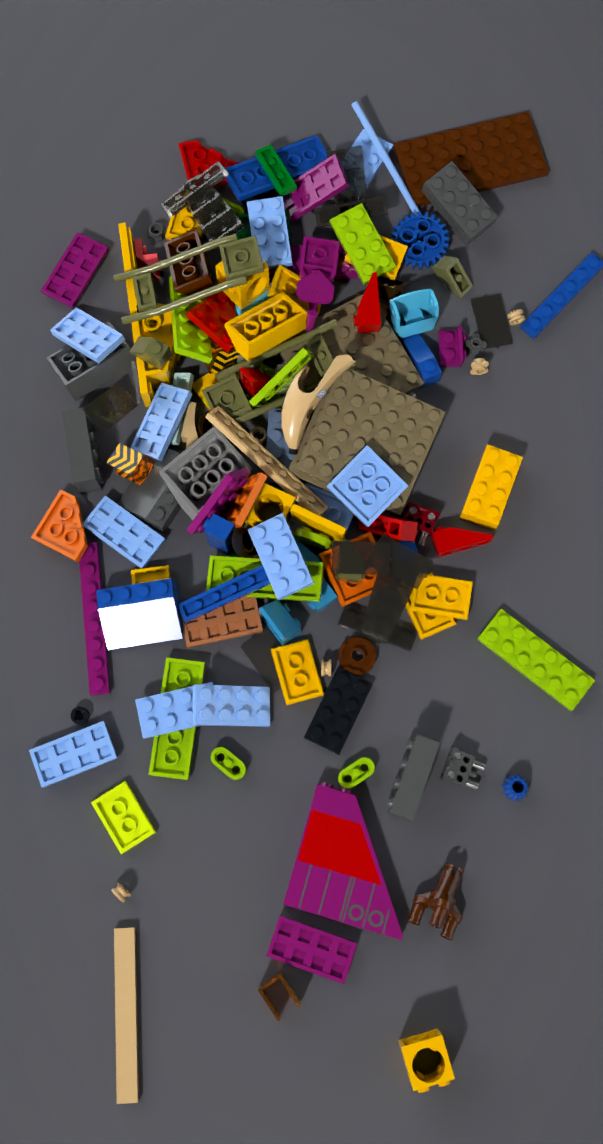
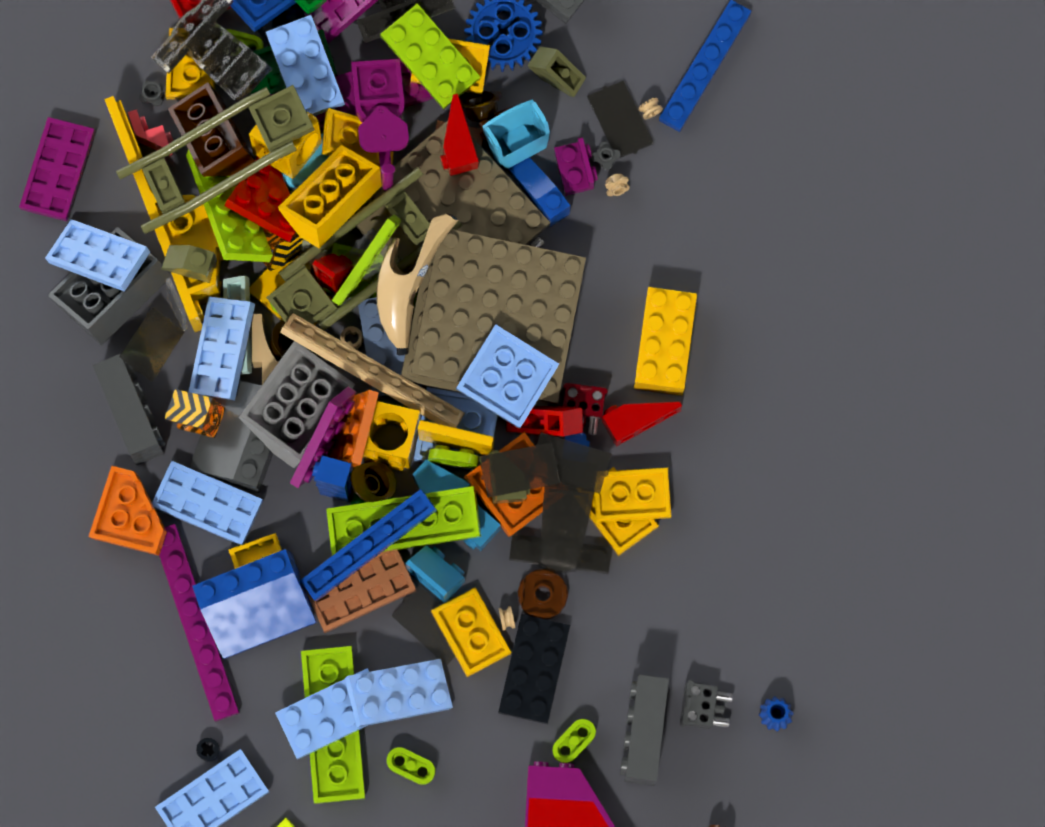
camera: 15 degrees left, 0 degrees up
(280, 556) = (418, 491): light blue plate -> none
(536, 660) = (768, 548): lime plate -> none

